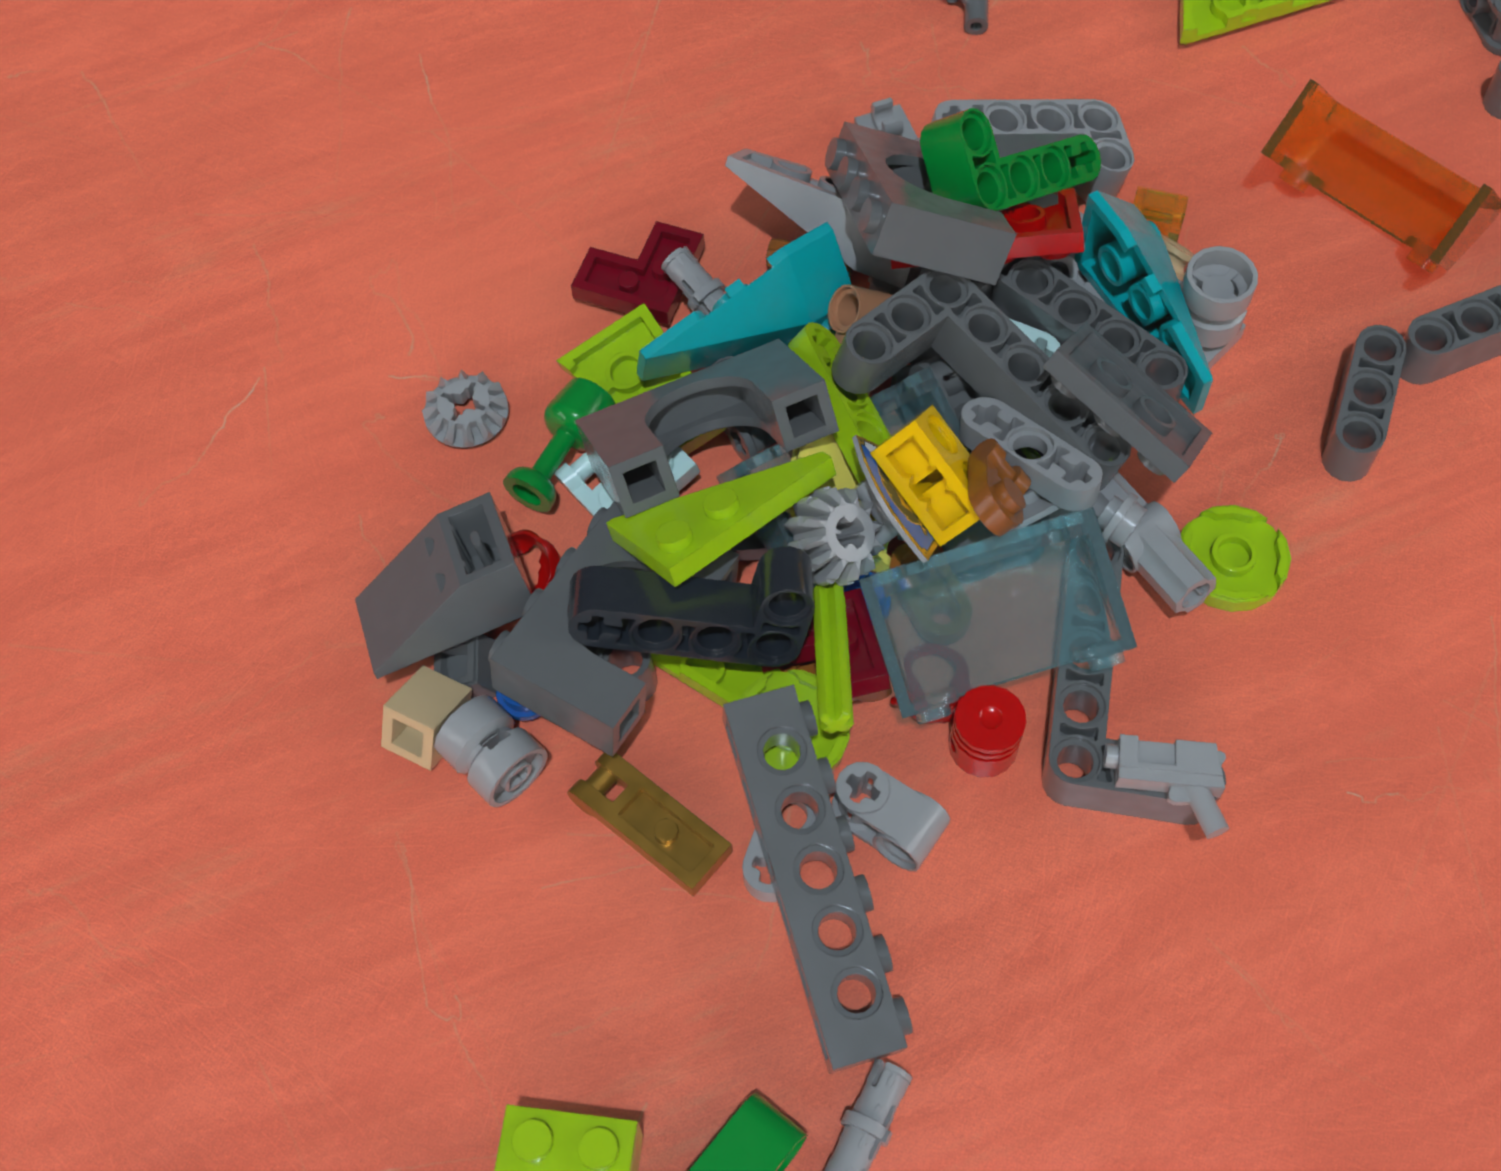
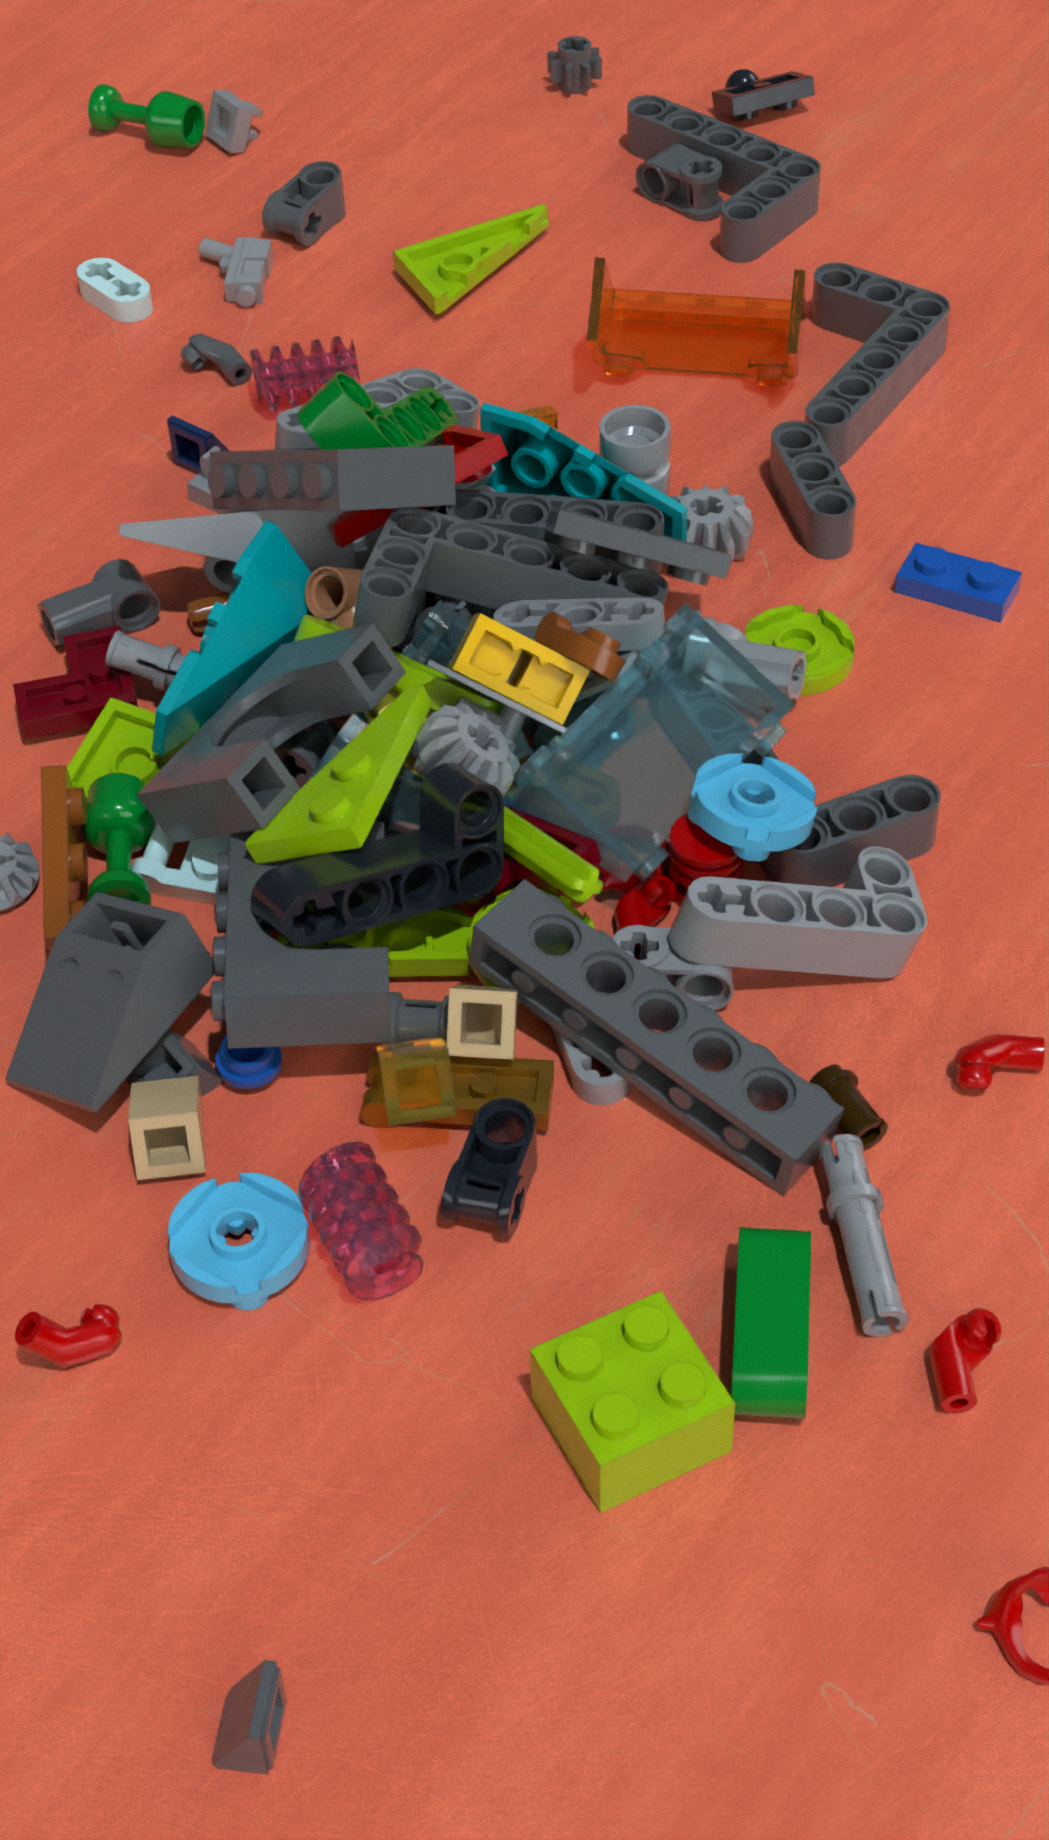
camera: 35 degrees left, 15 degrees down
(237, 860) = (72, 1345): none -> red arm
(413, 881) = (246, 1272): none -> medium azure plate
(487, 894) = (361, 1221): none -> clear pink piece
(493, 753) = (261, 1111): light grey wheel -> none
(507, 434) = (62, 850): none -> dark orange wing
(606, 802) = (416, 1080): none -> clear yellow brick
(615, 916) = (492, 1177): none -> black piece
(665, 742) = (417, 1018): none -> dark grey bush
(694, 776) = (482, 1022): none -> tan brick
(721, 205) = (112, 599): none -> dark grey piece
(885, 83) = (190, 443): none -> dark blue slope
(907, 741) = (645, 904): none -> red arm
(930, 1034) = (858, 1114): none -> dark brown pin
(1007, 837) = (806, 928): none -> light grey beam
(1020, 58) = (300, 372): none -> clear pink piece
(1024, 742) = (753, 805): none -> medium azure plate
(1086, 1059) = (997, 1051): none -> red arm
(1184, 770) = (896, 788): light grey piece -> none
(1244, 393) = (717, 520): none -> light grey gear
(1428, 569) = (958, 582): none -> blue plate

